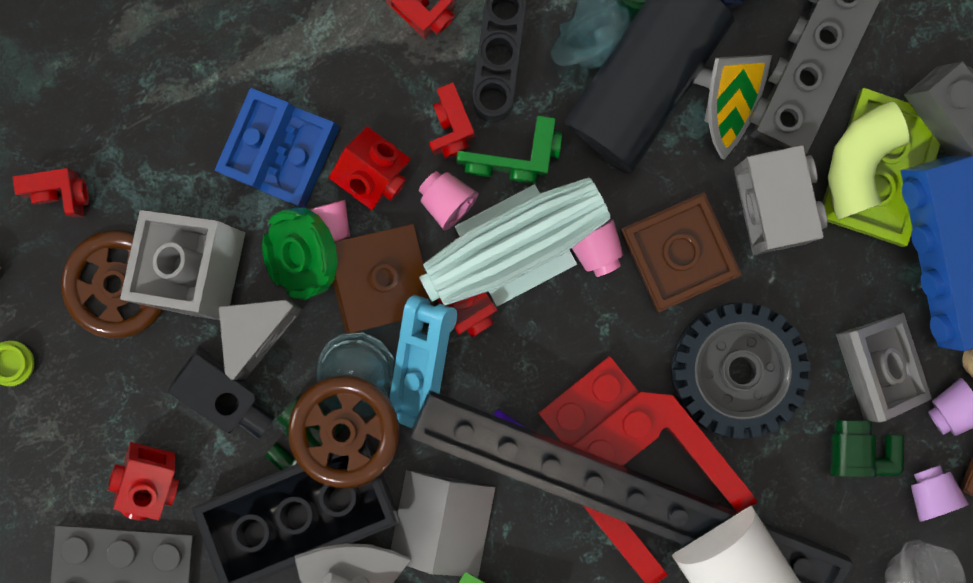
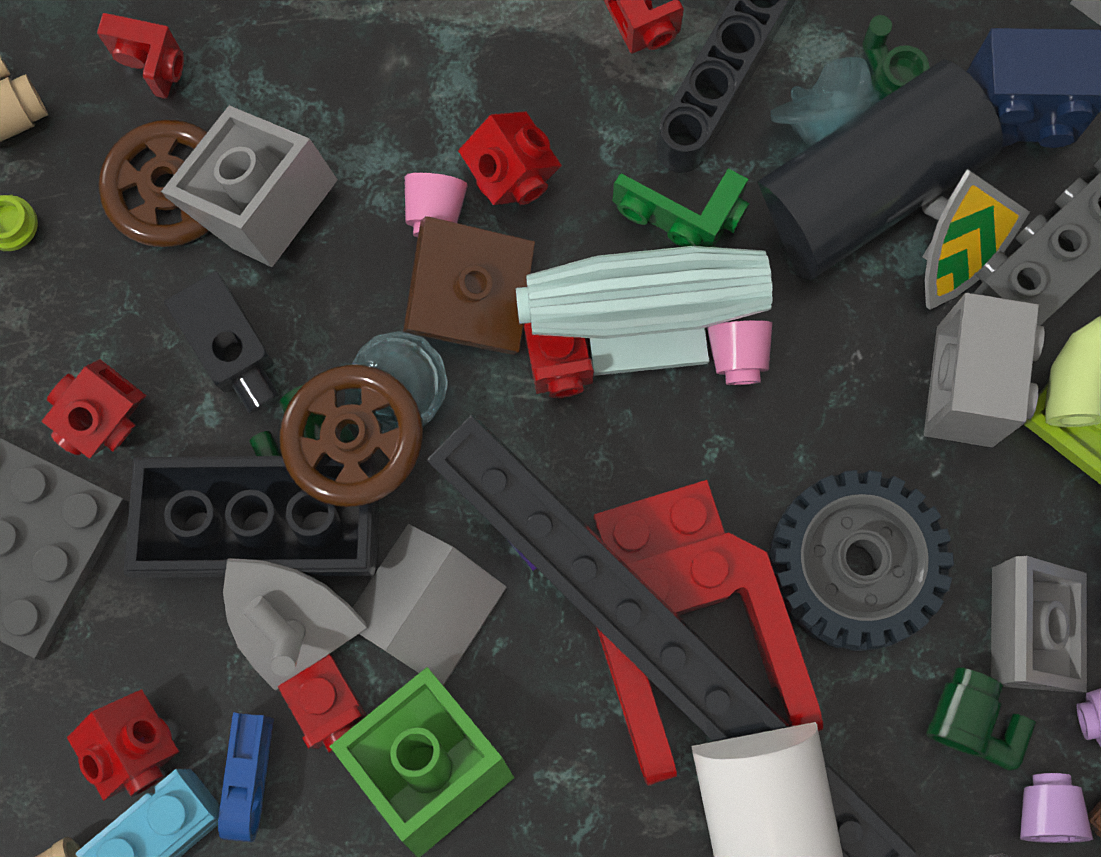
camera: 25 degrees right, 10 degrees down
(251, 332) = (297, 284): light grey slope -> none
(277, 148) = (414, 104): blue slope -> none
(300, 253) = (389, 220): green tile -> none
(420, 356) = (481, 386): medium azure plate -> none
(447, 198) = (586, 227): bright pink hat -> none
(451, 114) = (627, 144): red bracket -> none
(680, 252) = (838, 395): reddish brown plate -> none

